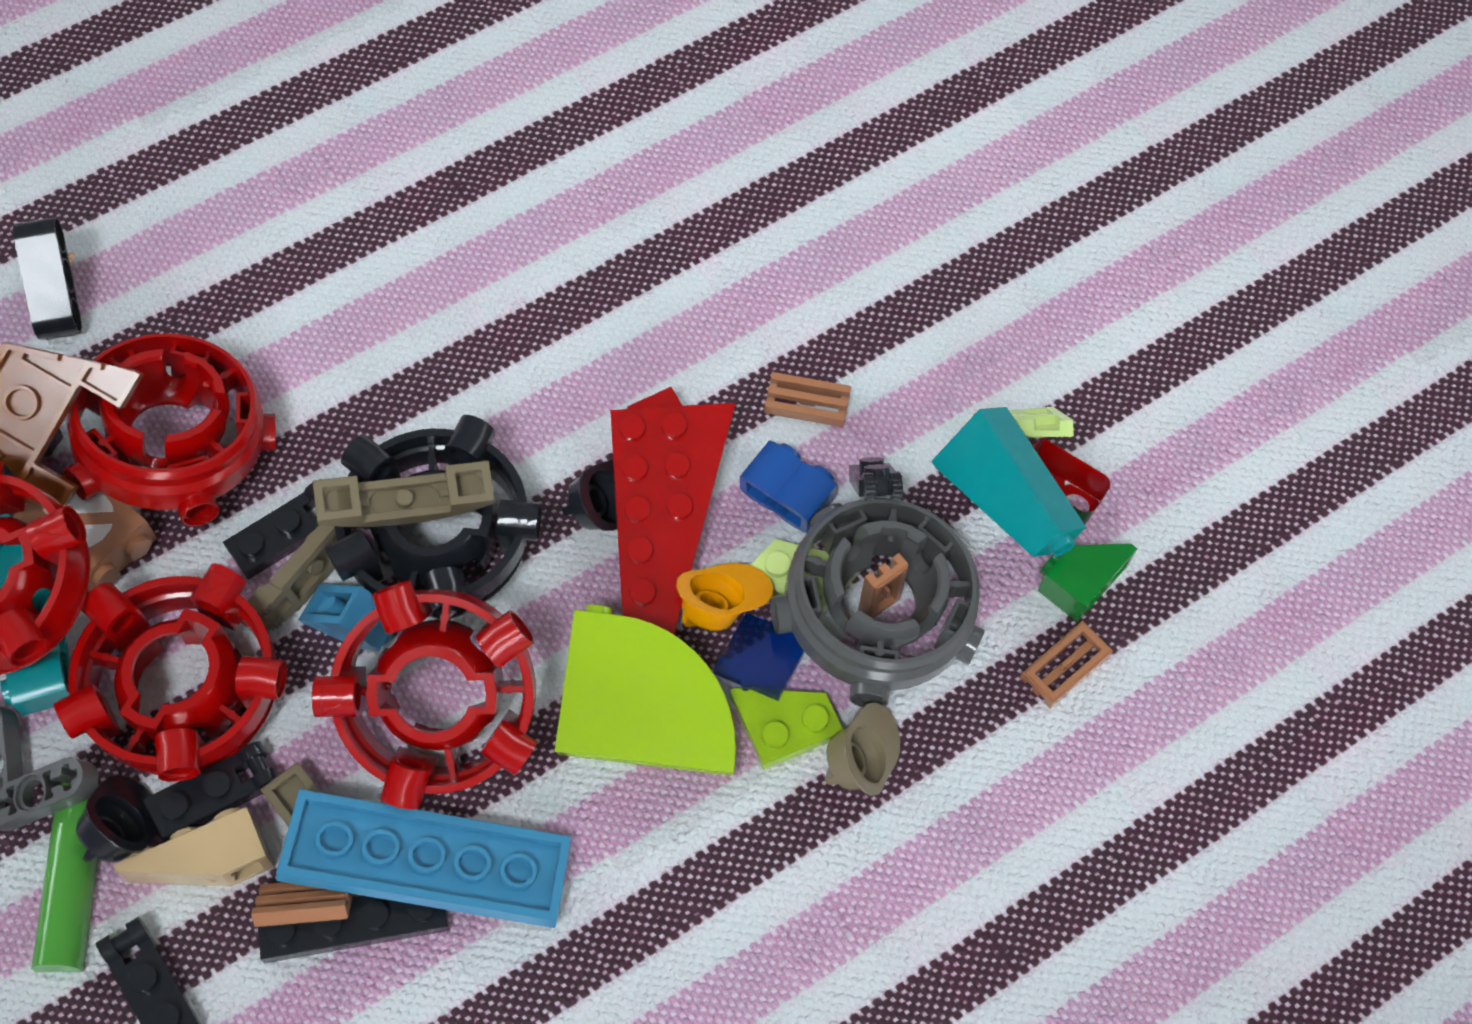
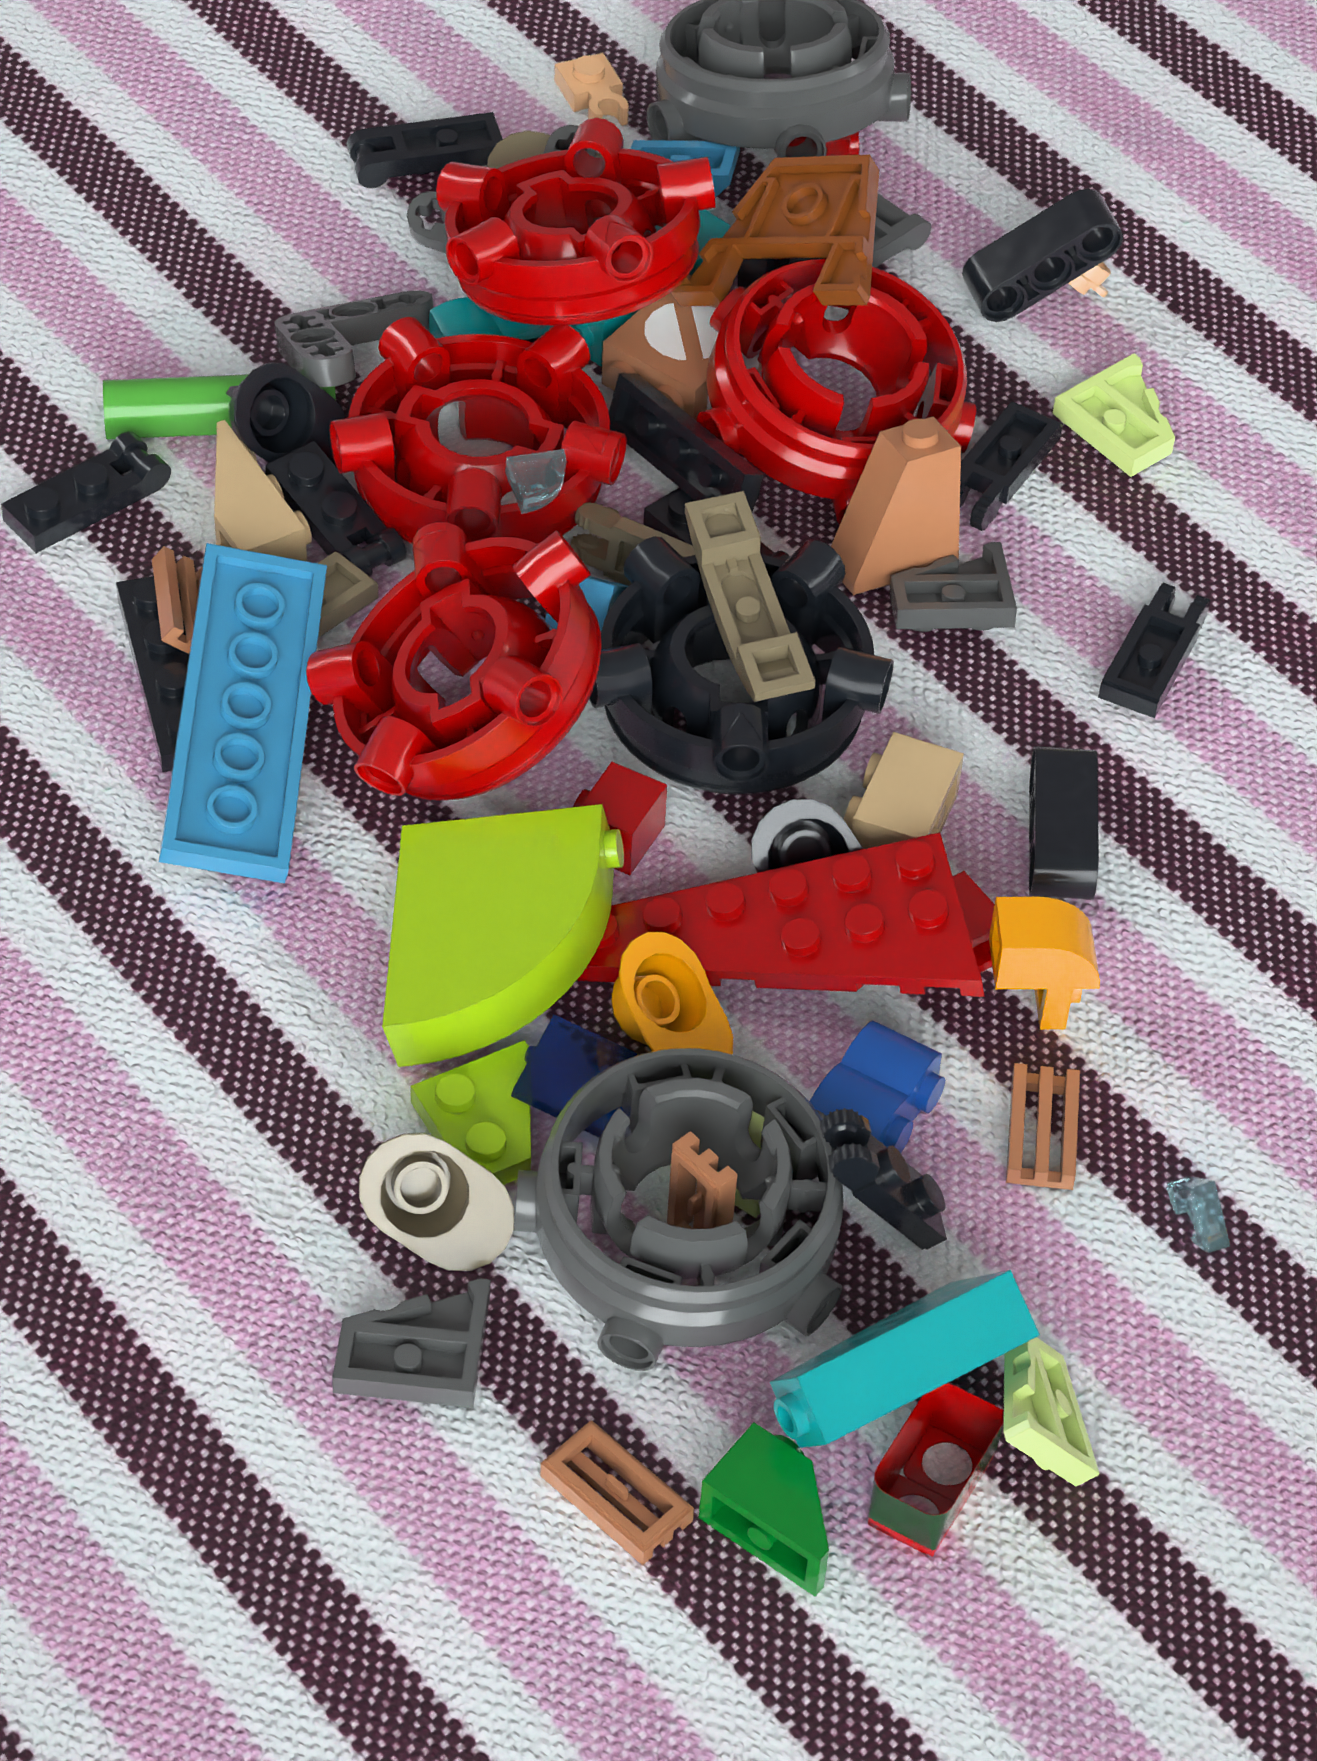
camera: 85 degrees right, 15 degrees down
(206, 262) = (1118, 416): none -> yellowish green wing
(207, 534) = (678, 443): none -> black plate
(239, 337) = (1005, 459): none -> black hinge
(247, 629) = (536, 478): none -> clear light blue tile
(298, 400) = (902, 506): none -> nougat slope
(359, 383) = (955, 594): none -> dark grey wing
(429, 276) = (1153, 653): none -> black hinge
(546, 613) = (633, 806): none -> red brick
(551, 438) = (905, 792): none -> tan brick
(574, 350) = (1063, 823): none -> black beam
(706, 369) = (1046, 949): none -> light orange brick
(875, 323) = (1202, 1204): none -> clear light blue tile
(970, 770) = (415, 1349): none -> dark grey wing

